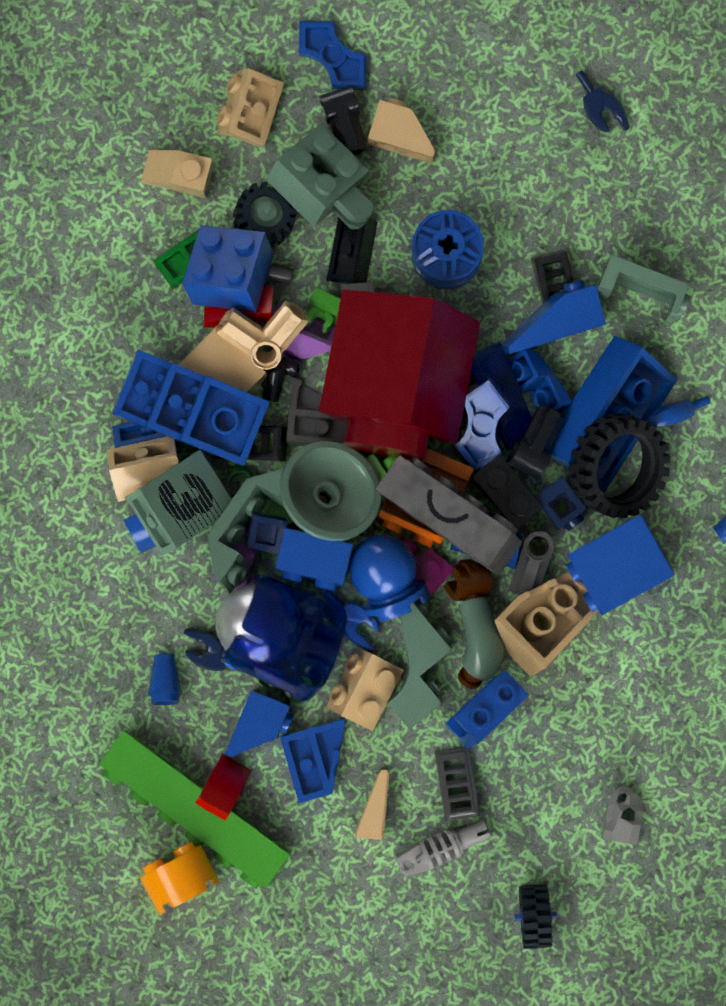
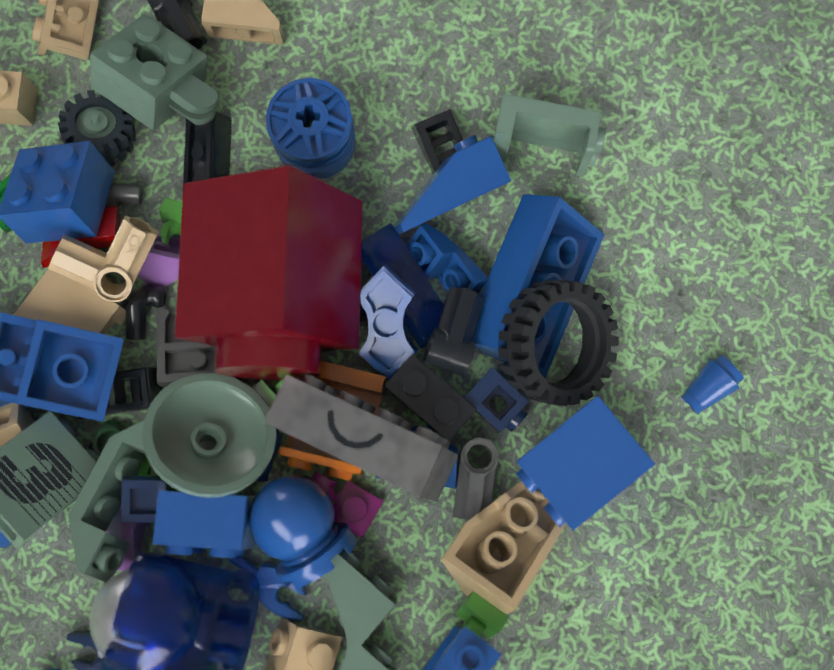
camera: 10 degrees left, 5 degrees down
(484, 643) = (433, 588): sand green piece -> none
(519, 669) = (481, 616): none -> bright green tile
(676, 411) = (612, 269): blue hand -> none

